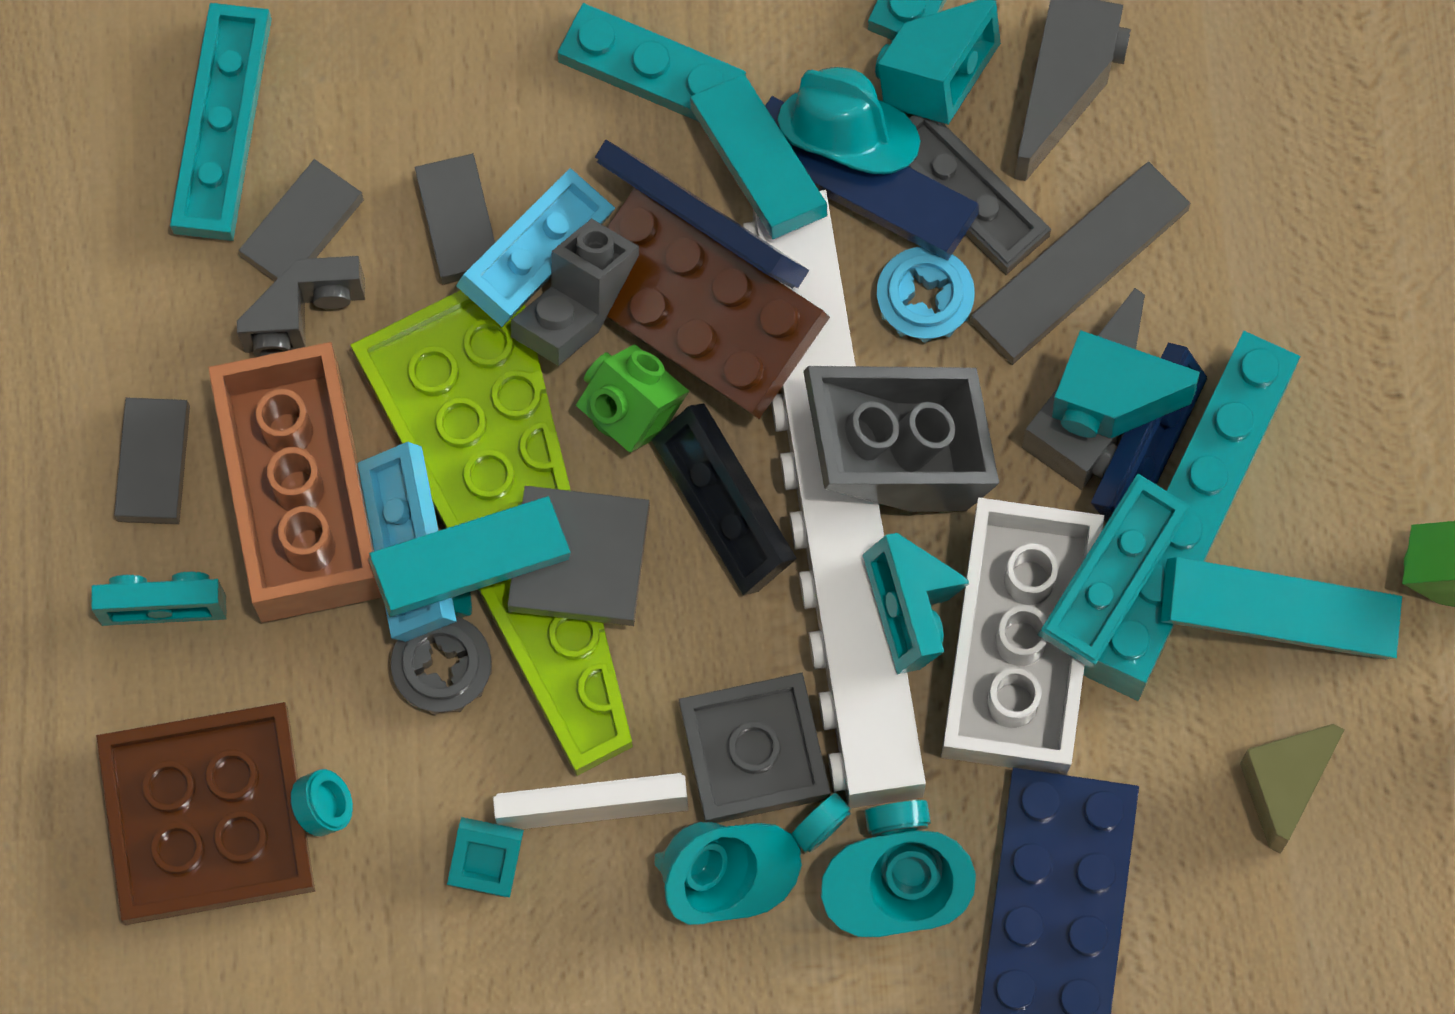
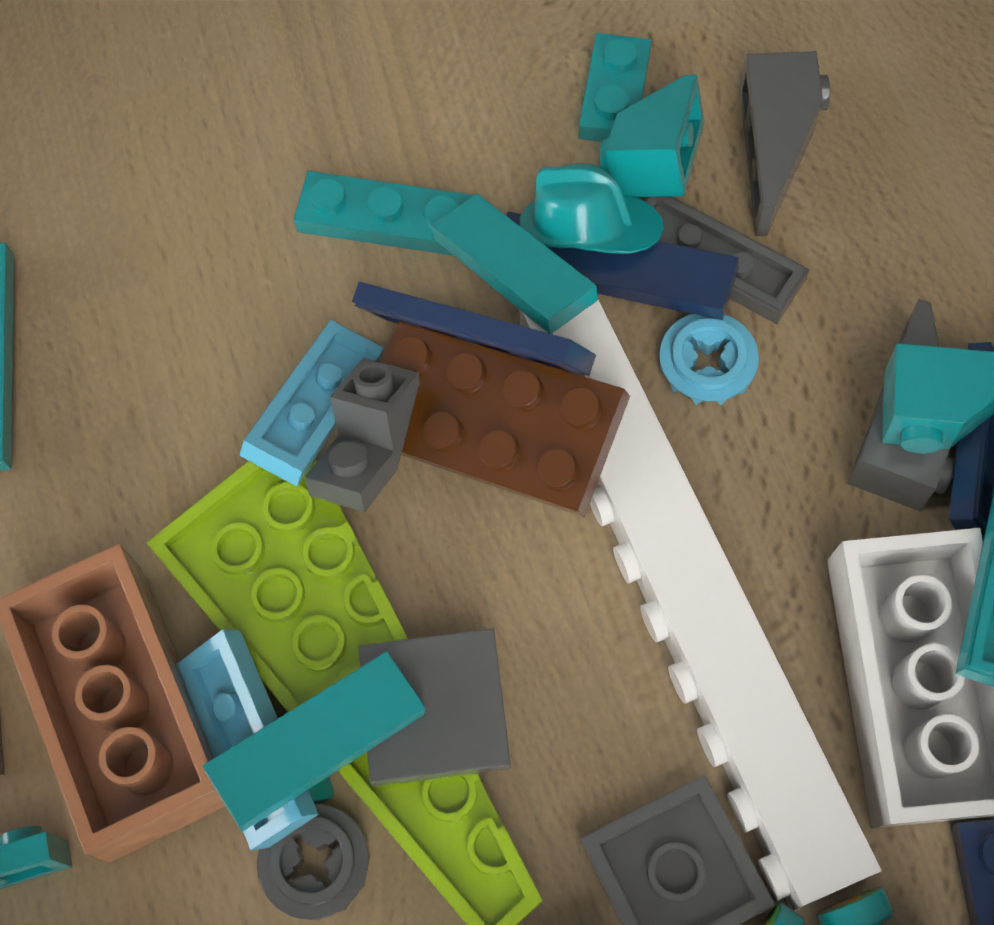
camera: 10 degrees left, 5 degrees down
(278, 316) = (69, 523): dark grey slope -> none
(301, 221) = (76, 438): dark grey tile -> none
(455, 214) = (226, 389): dark grey tile -> none
(630, 396) = (446, 526): bright green brick -> none
(723, 499) = (569, 609): black plate -> none
(902, 435) = (742, 495): dark grey slope -> none
(904, 588) = (795, 658): teal slope -> none
(1080, 263) = (845, 296): dark grey tile -> none

